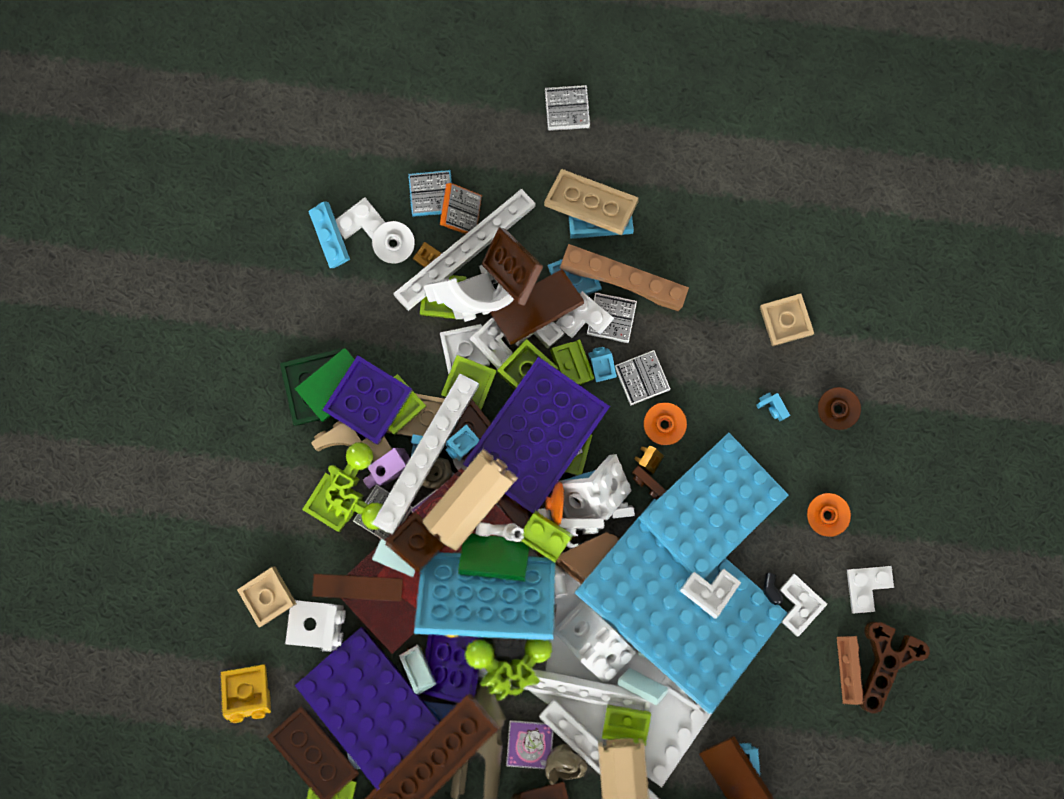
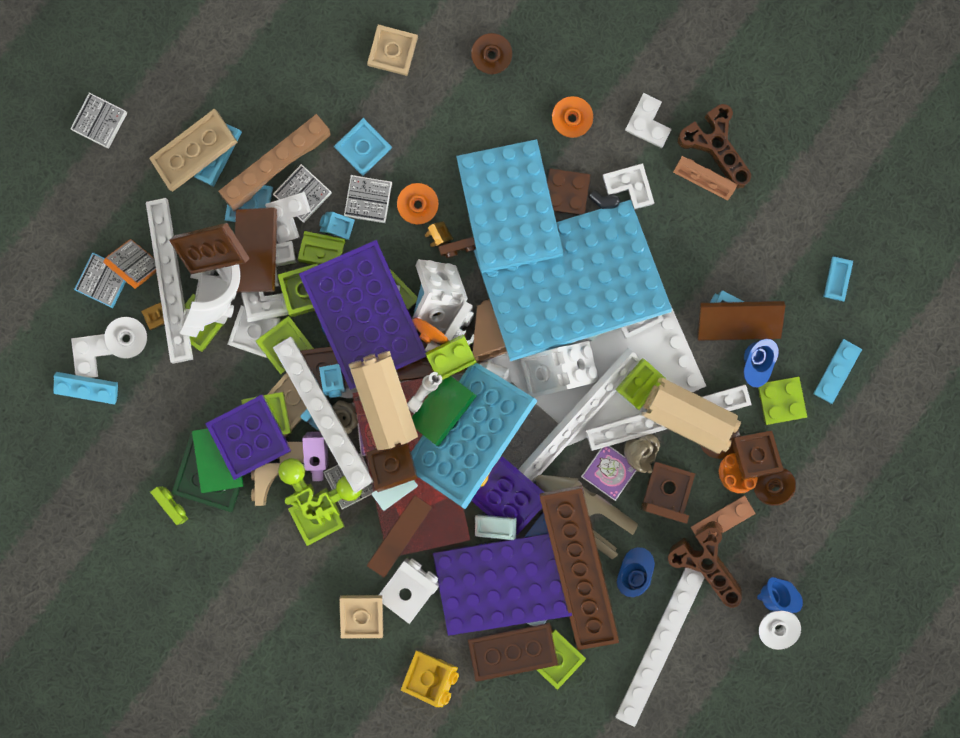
camera: 55 degrees left, 5 degrees up
(266, 371) = (174, 510): none -> lime plate
(480, 655) = (514, 466): lime piece -> none
(623, 511) = (468, 281): white plate -> none
(642, 686) = (618, 351): light aqua tile -> none
(685, 345) = (363, 147): none -> medium azure tile
(711, 596) = (581, 250): white plate -> none
(760, 551) = (568, 191): none -> reddish brown plate
(777, 407) = (461, 104): medium azure bracket -> none

